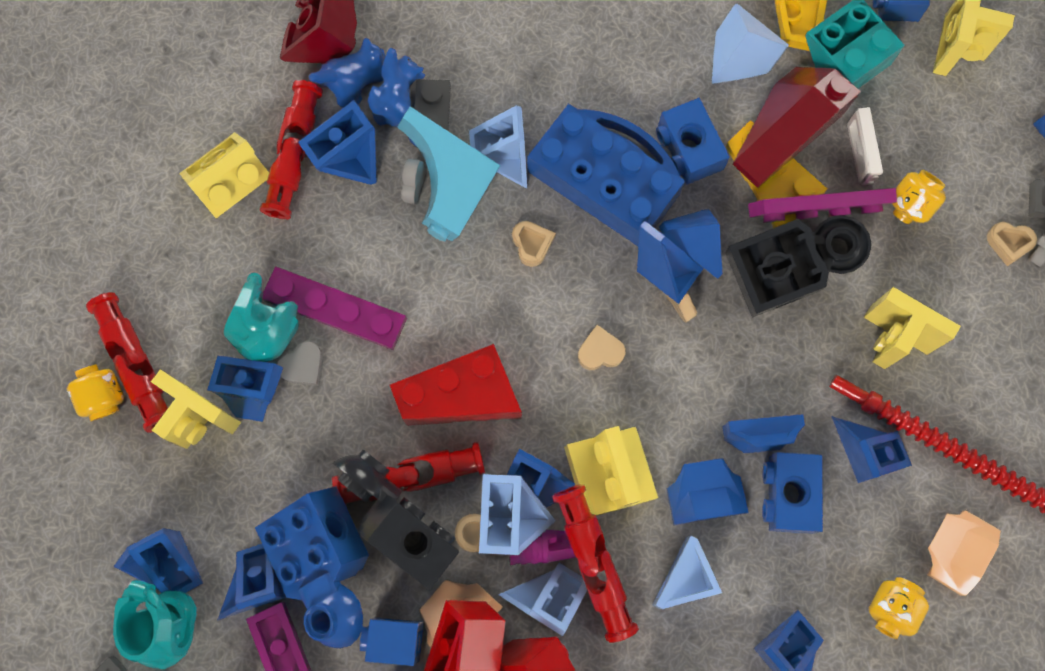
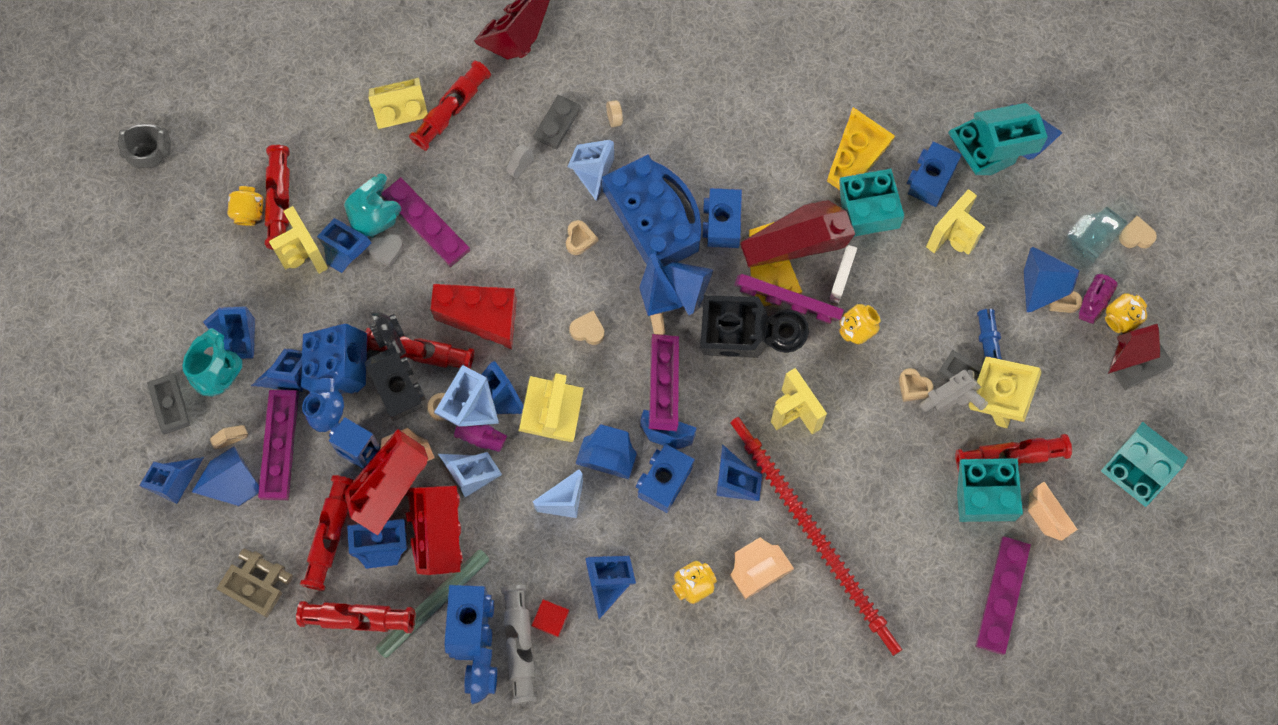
camera: 25 degrees right, 5 degrees down
(344, 145) = (485, 117): blue slope -> none
(351, 73) = (516, 71): blue animal -> none
(392, 98) = (532, 101): blue animal -> none
(456, 174) = (550, 170): medium azure arch -> none
(496, 72) = (614, 113): none -> tan tile
(590, 550) = (508, 437): red piece -> none
(735, 377) = (664, 382): none -> magenta plate
(744, 47) = (797, 171): light blue slope -> none

